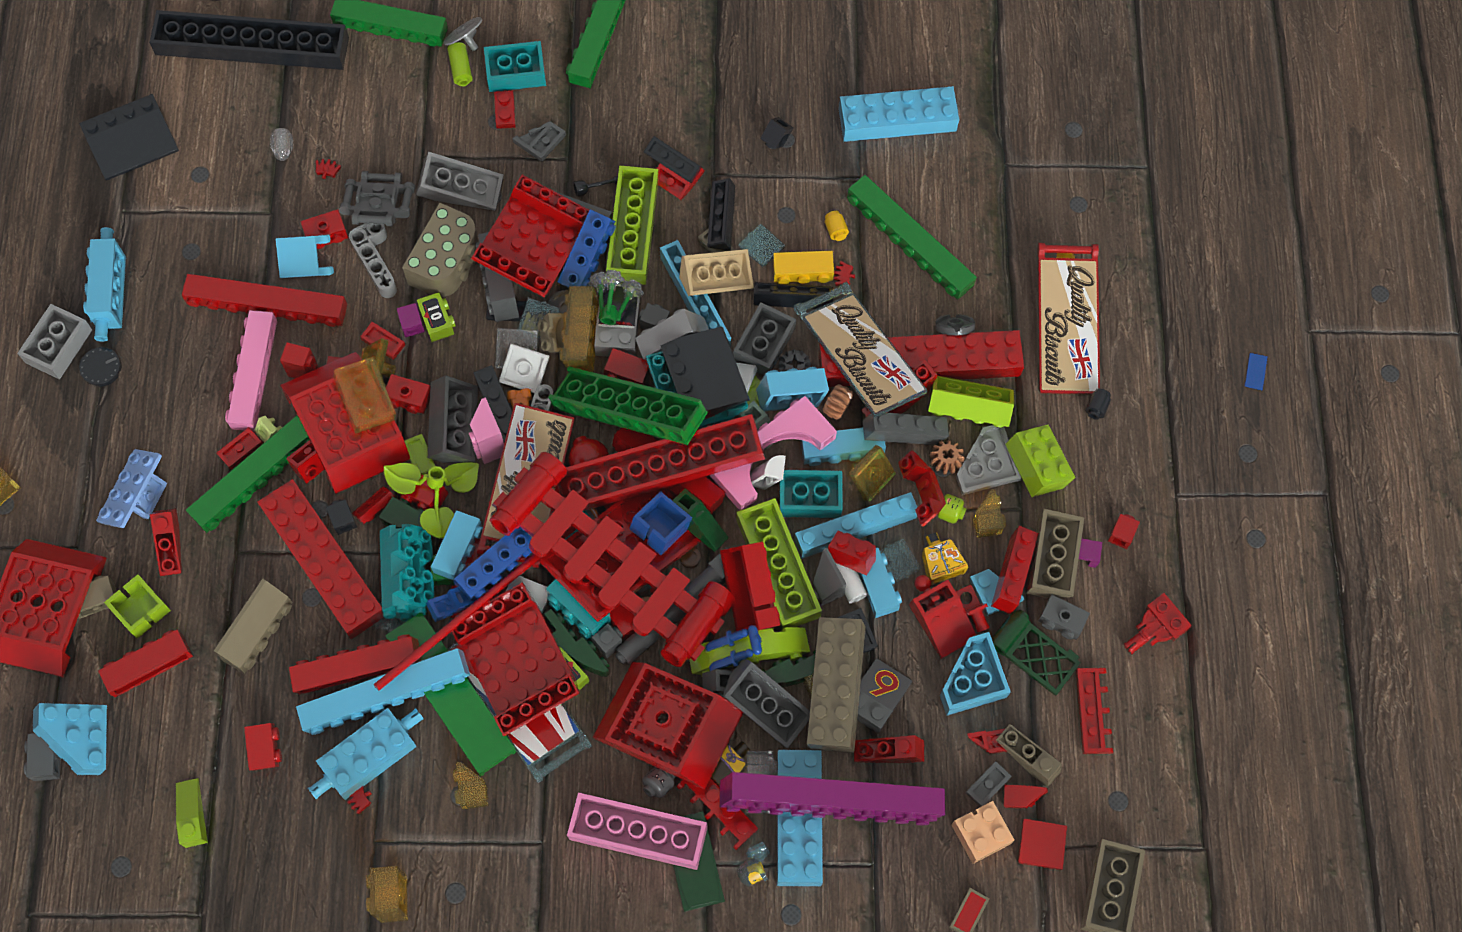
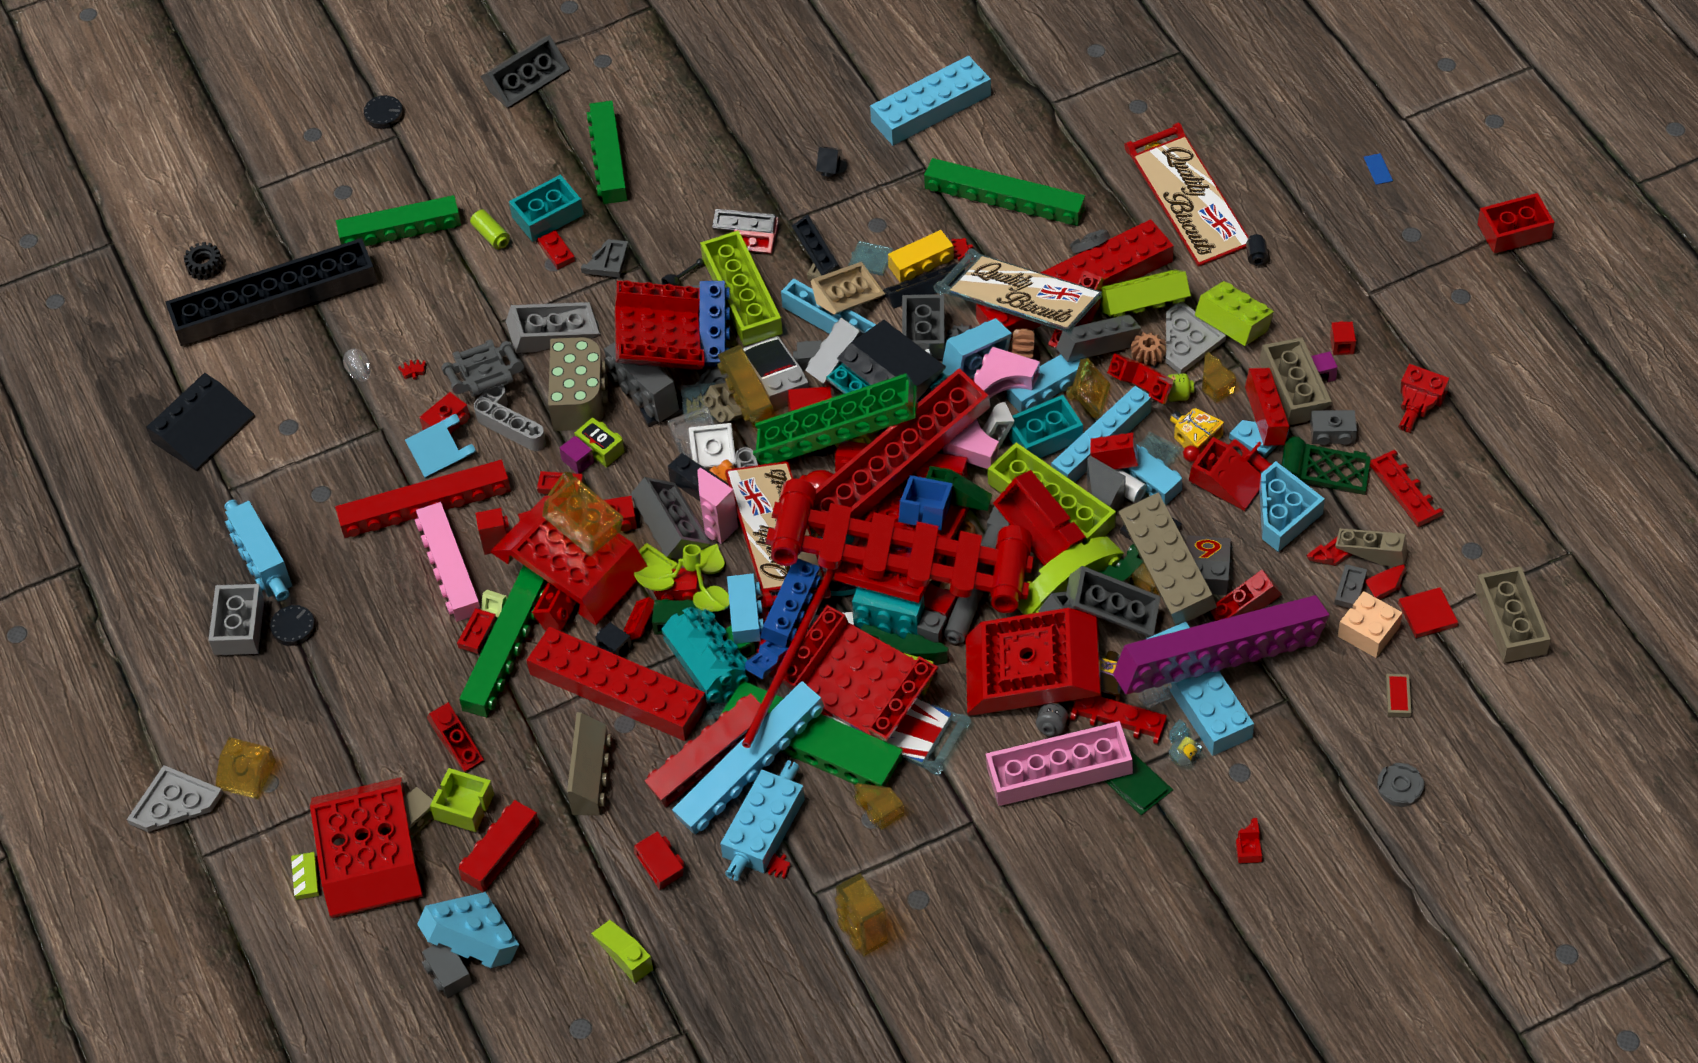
camera: 20 degrees left, 15 degrees down
(134, 491) = (394, 709): light blue bracket -> none
(466, 32) = (480, 199): light grey shield -> none
(608, 314) = (768, 362): plant -> none
(730, 637) = (1048, 565): blue piece -> none
(836, 226) = (930, 211): yellow brick -> none
(1346, 492) = (1515, 223): none -> red brick

